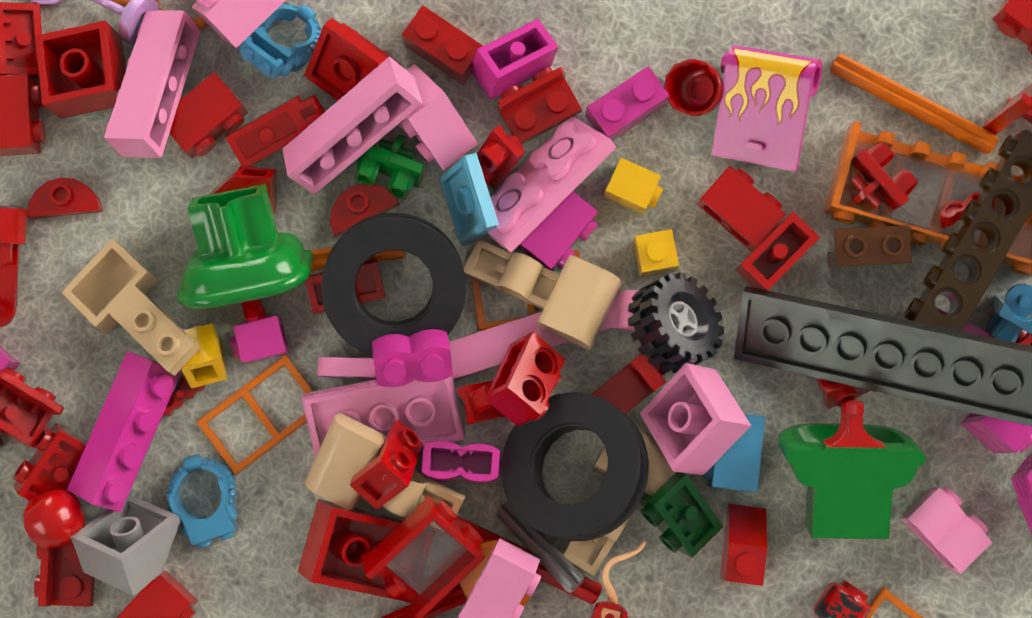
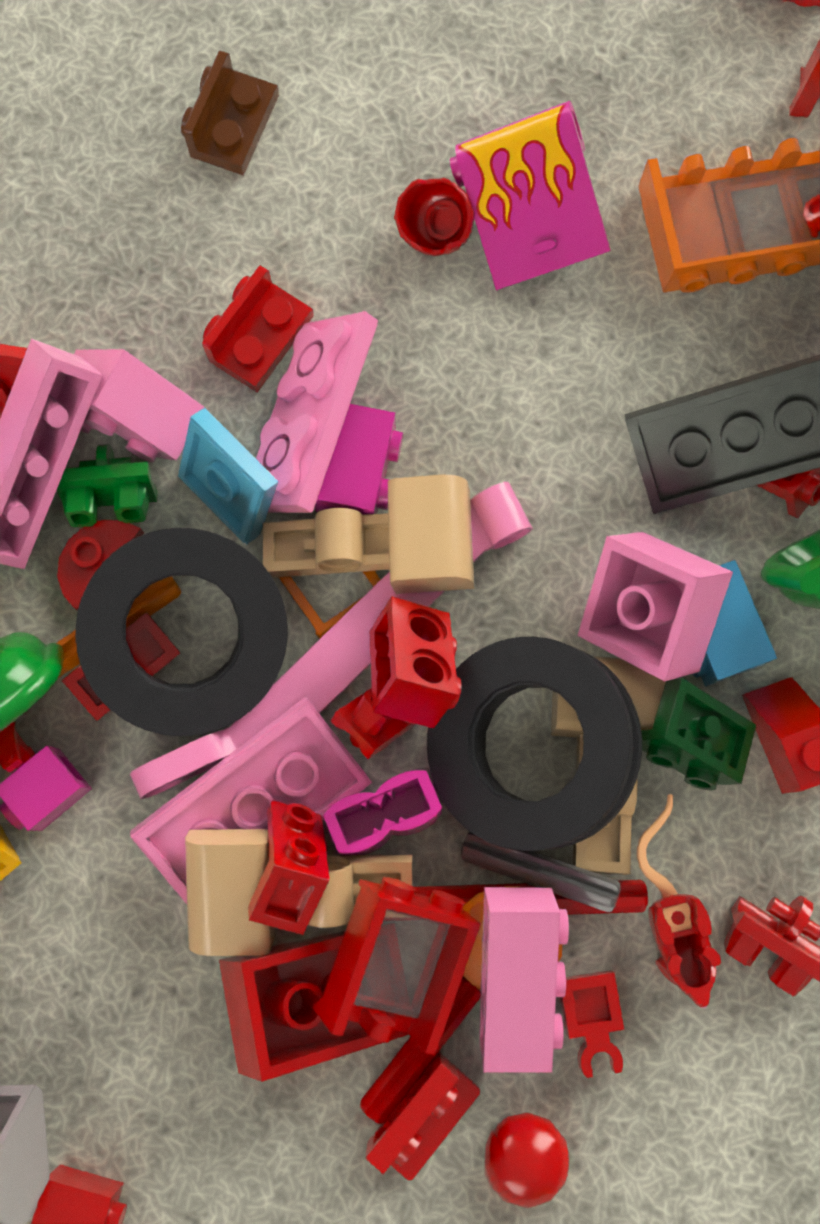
camera: 30 degrees left, 5 degrees down
(222, 522) = (103, 1061): dark azure piece -> none
(245, 393) = (55, 869): orange window -> none
(418, 357) = (261, 702): dark pink brick -> none
(441, 44) = (101, 311): red brick -> none
(499, 156) = (238, 404): red hips -> none
(513, 58) = (195, 281): dark pink brick -> none
(627, 104) = (366, 269): dark pink brick -> none
(631, 384) = (550, 598): red bracket -> none
(634, 186) = (423, 367): yellow brick -> none
(655, 253) = (492, 431): yellow brick -> none
(675, 322) = (563, 498): black wheel -> none
(742, 207) = (567, 330): red brick -> none
(777, 253) = (640, 356): red brick -> none
(870, 166) = (714, 217): red hips -> none
(871, 246) = (747, 297): reddish brown bracket -> none
(914, 104) = (700, 120): orange axle -> none

